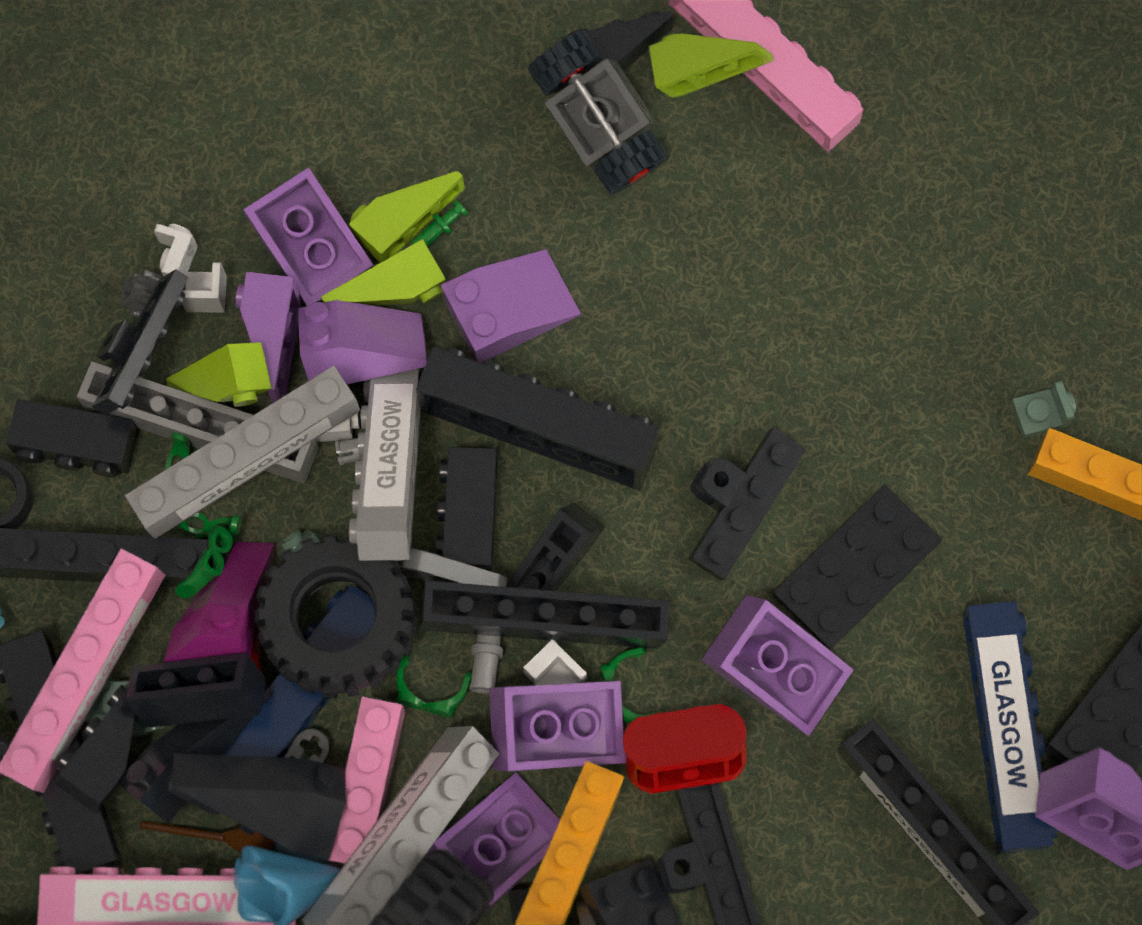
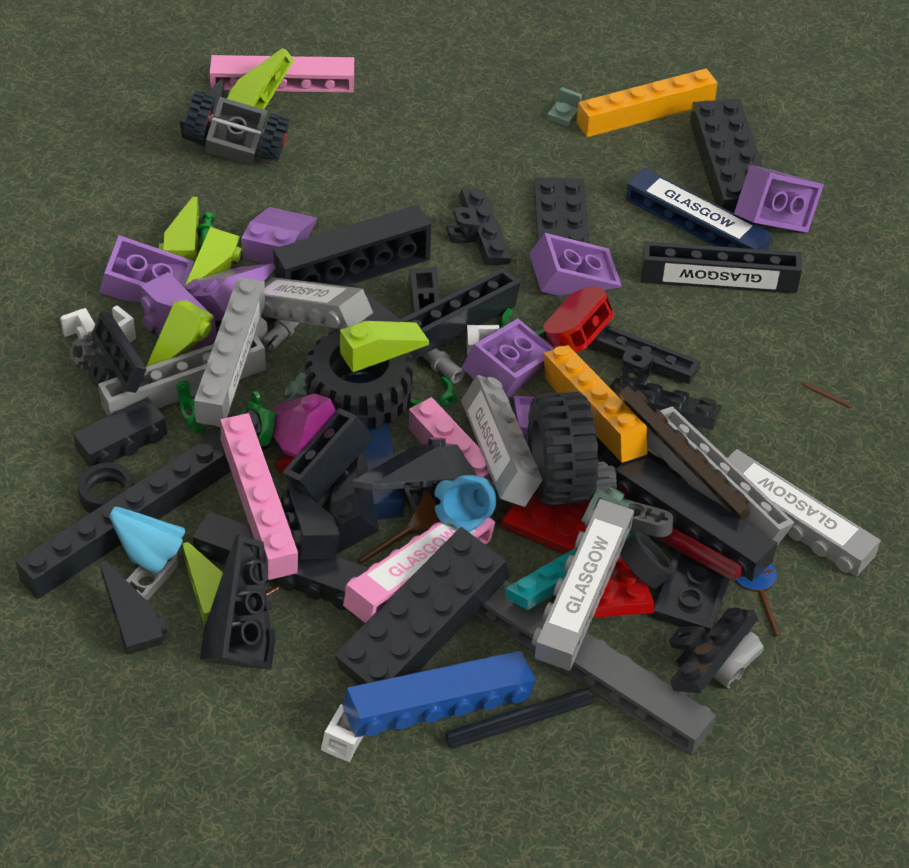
camera: 50 degrees left, 25 degrees down
(371, 613) = (379, 341): none -> lime slope

